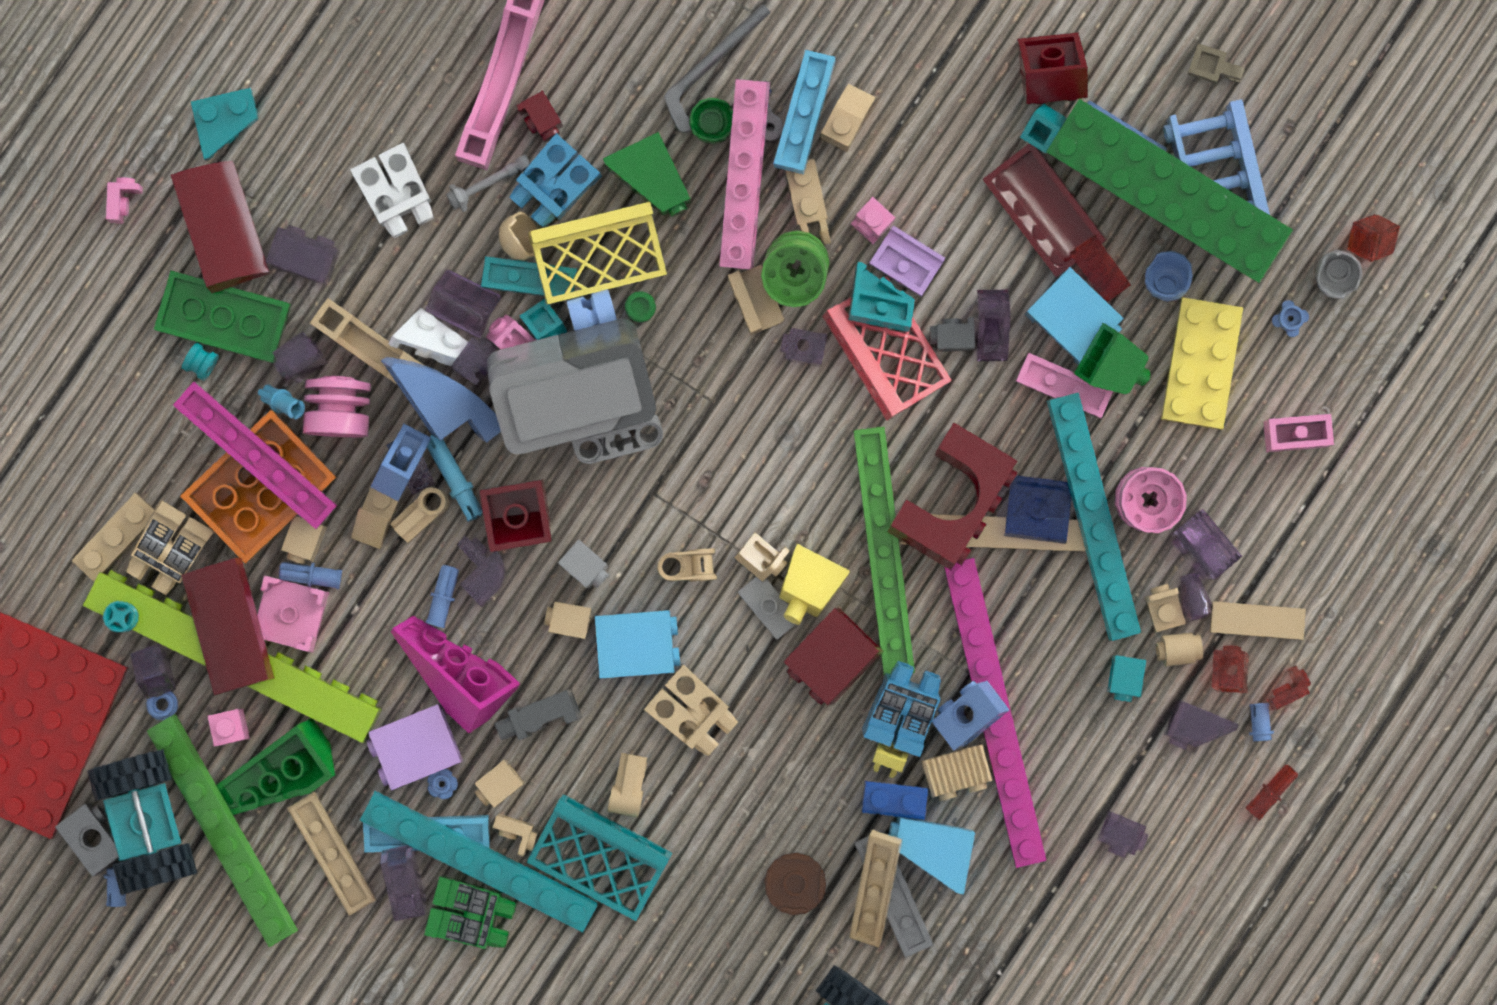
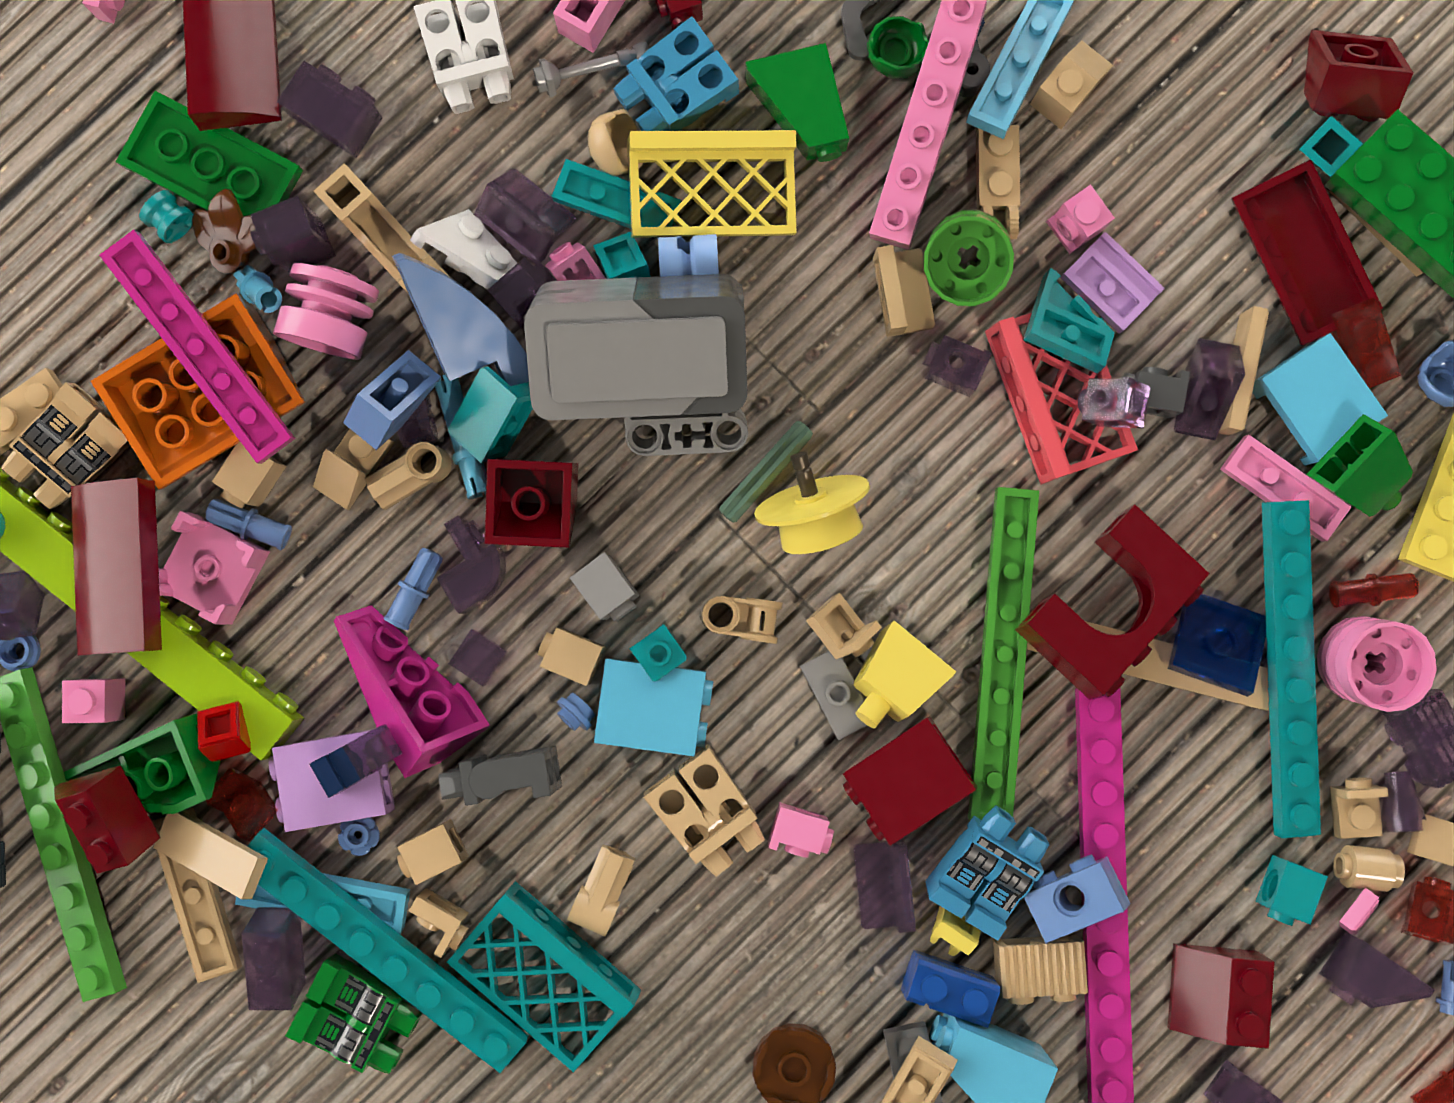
camera: 15 degrees right, 0 degrees up
(247, 360) = (224, 232): none -> reddish brown plate
(260, 807) = (106, 818): none -> dark red slope
(331, 727) = (223, 732): none -> red slope
(342, 815) = (211, 854): none -> tan tile
(354, 778) = (243, 802): none -> clear red bracket
(434, 725) = (355, 760): none -> leg
(474, 458) = (491, 416): none -> teal panel
(500, 636) = (478, 657): none -> clear purple tile
(581, 660) = (575, 712): none -> medium blue plate
(632, 603) = (659, 653): none -> teal bracket
(640, 307) = (752, 269): green tile -> none
(682, 455) = (765, 471): none -> sand green axle
(723, 476) = (815, 511): none -> light yellow piece
(763, 711) = (800, 831): none -> bright pink brick
(832, 738) = (884, 886): none -> clear purple panel
(915, 352) = (1114, 402): none -> clear purple brick
(1015, 291) = (1250, 338): none -> tan tile
(1090, 762) = (1221, 995): none -> dark red slope
(1144, 446) = (1373, 589): none -> clear red axle
(1178, 682) = (1359, 912): none -> bright pink tile

